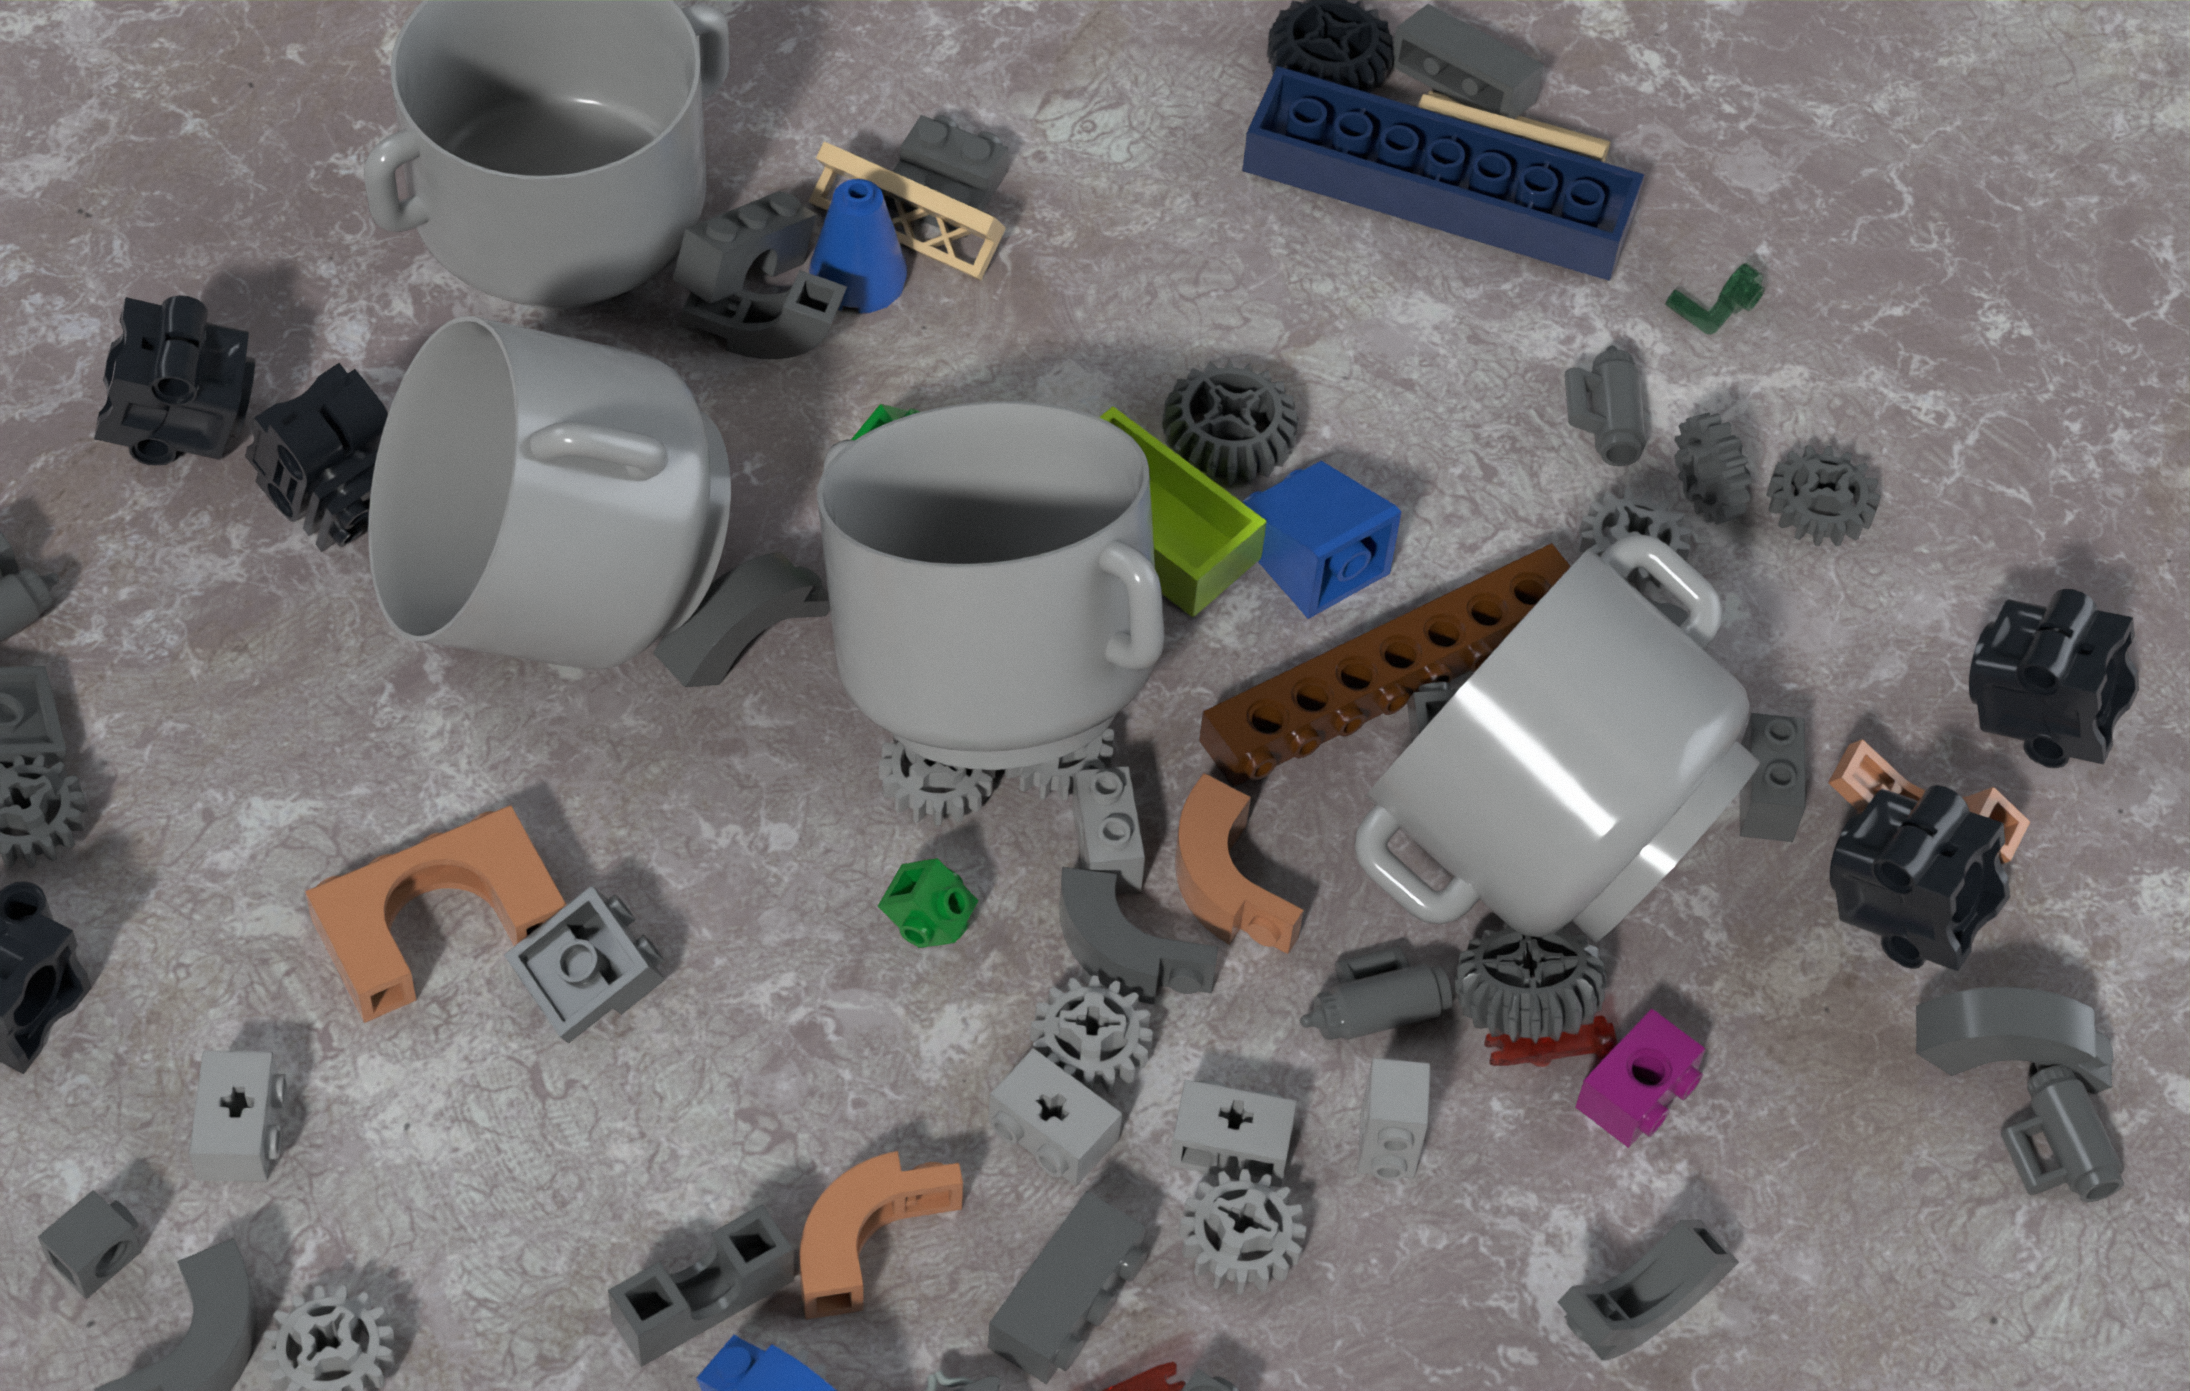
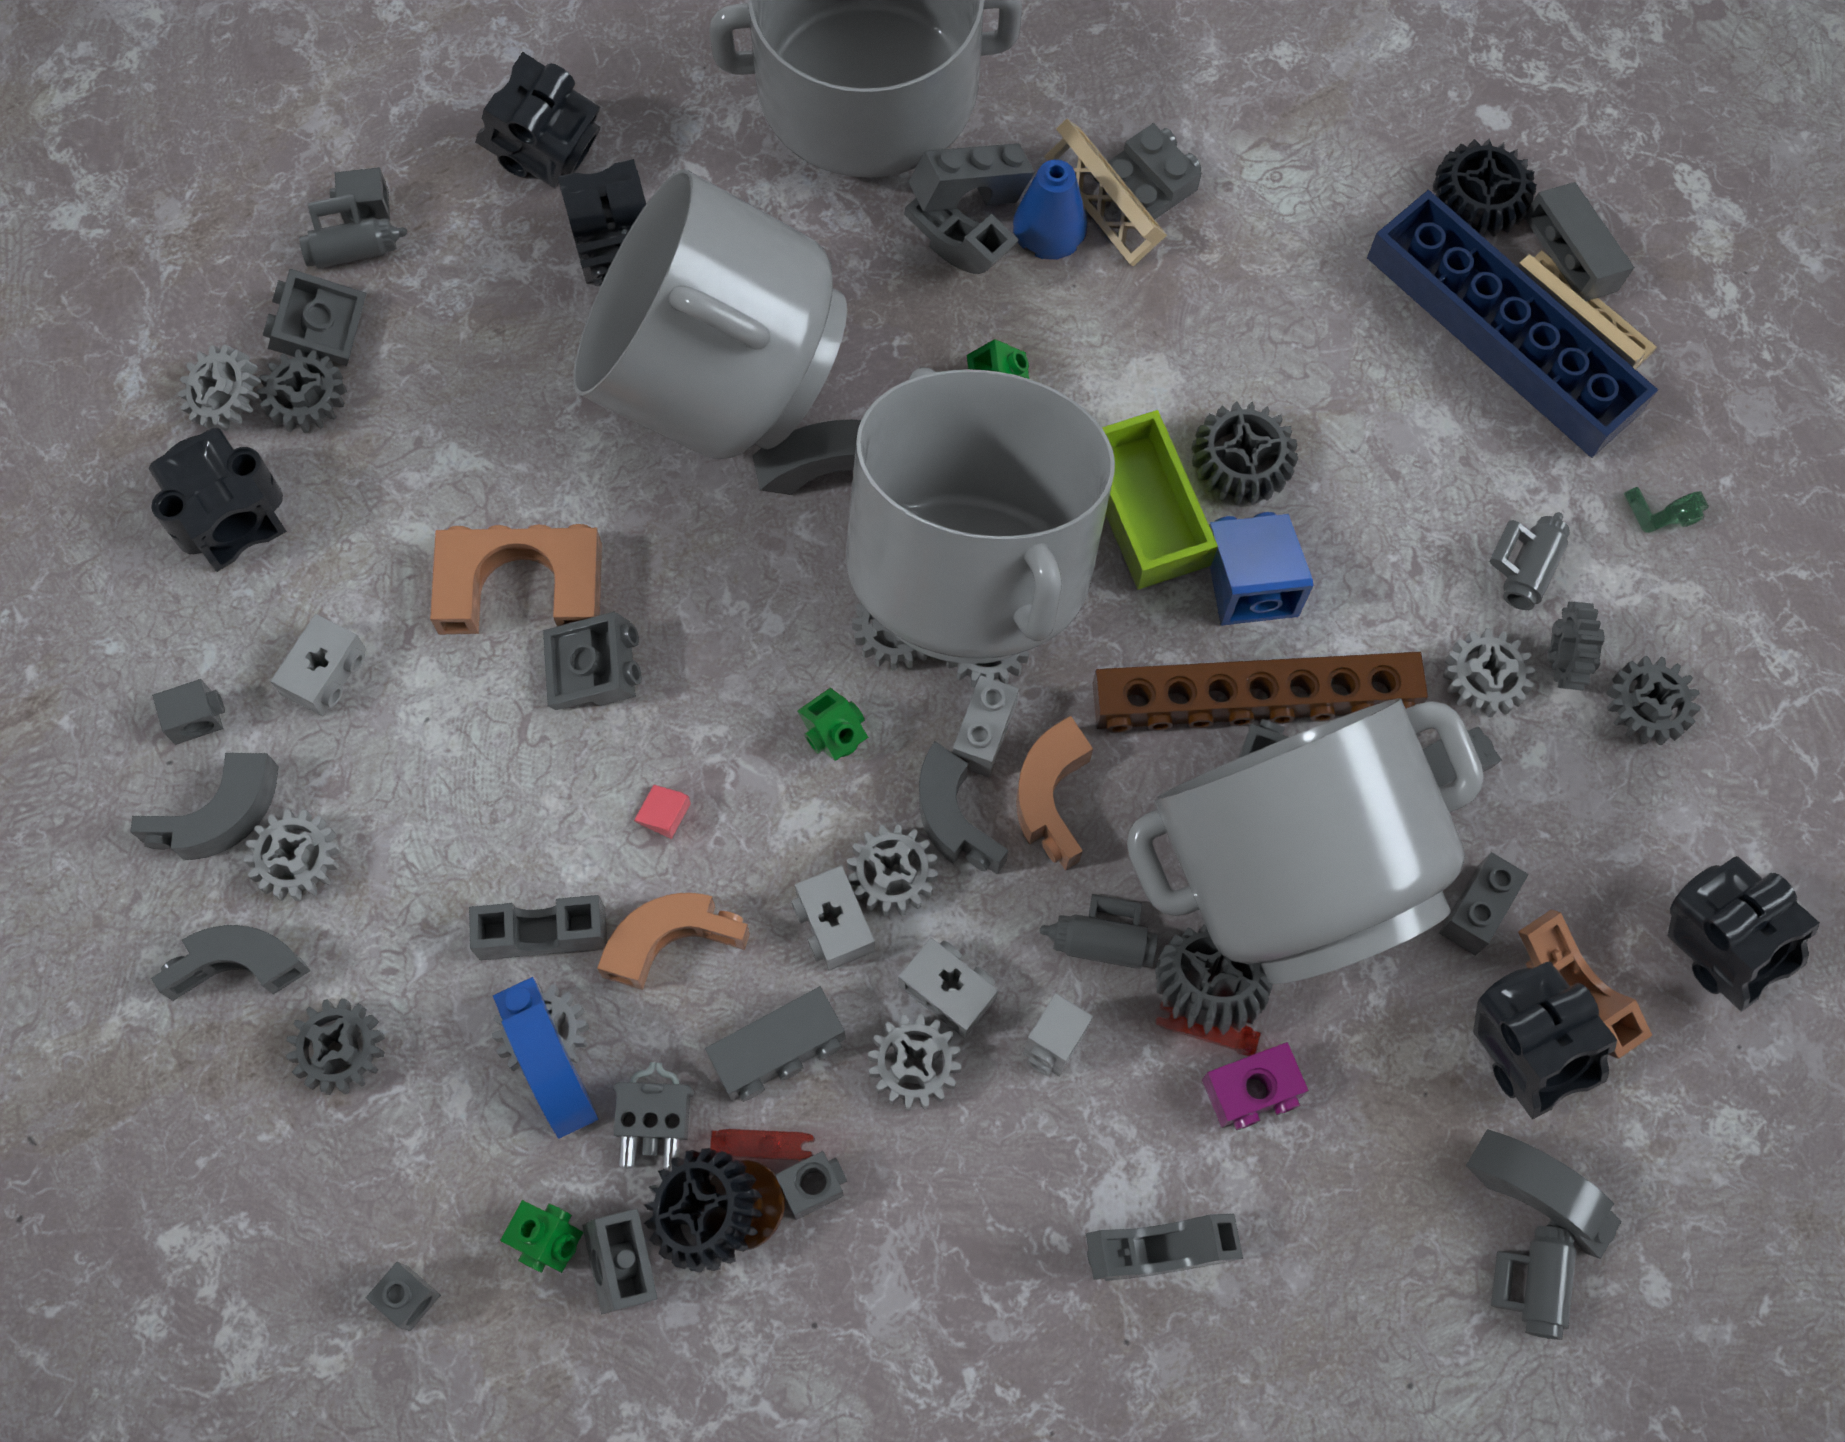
camera: 30 degrees right, 15 degrees up
(771, 1094) = (663, 810): none -> coral slope

